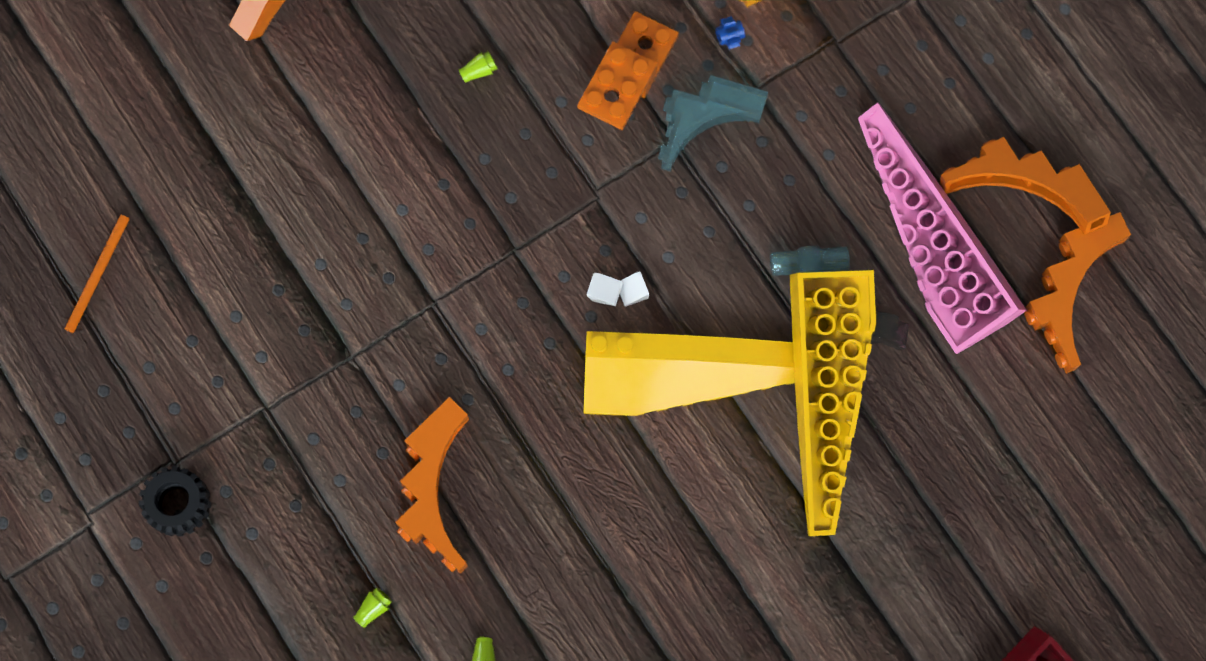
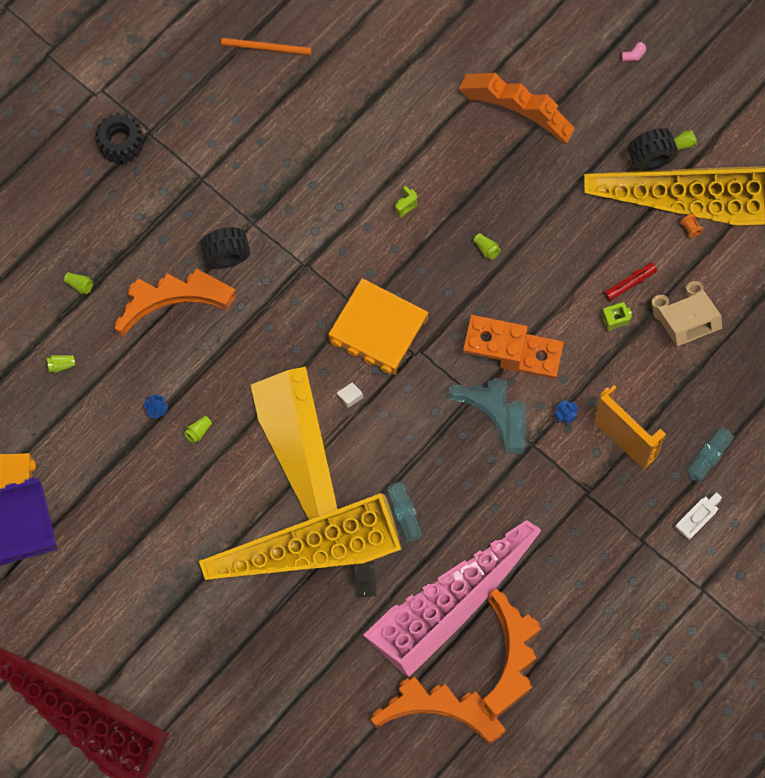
camera: 80 degrees right, 5 degrees down
(384, 140) = (406, 204): none -> lime bracket
(387, 394) = (225, 247): none -> black tyre
(552, 228) = (377, 326): none -> light orange panel
(583, 542) = (155, 406): none -> blue gear
(604, 289) = (343, 374): white slope -> none
(630, 496) = (197, 430): none -> lime cone

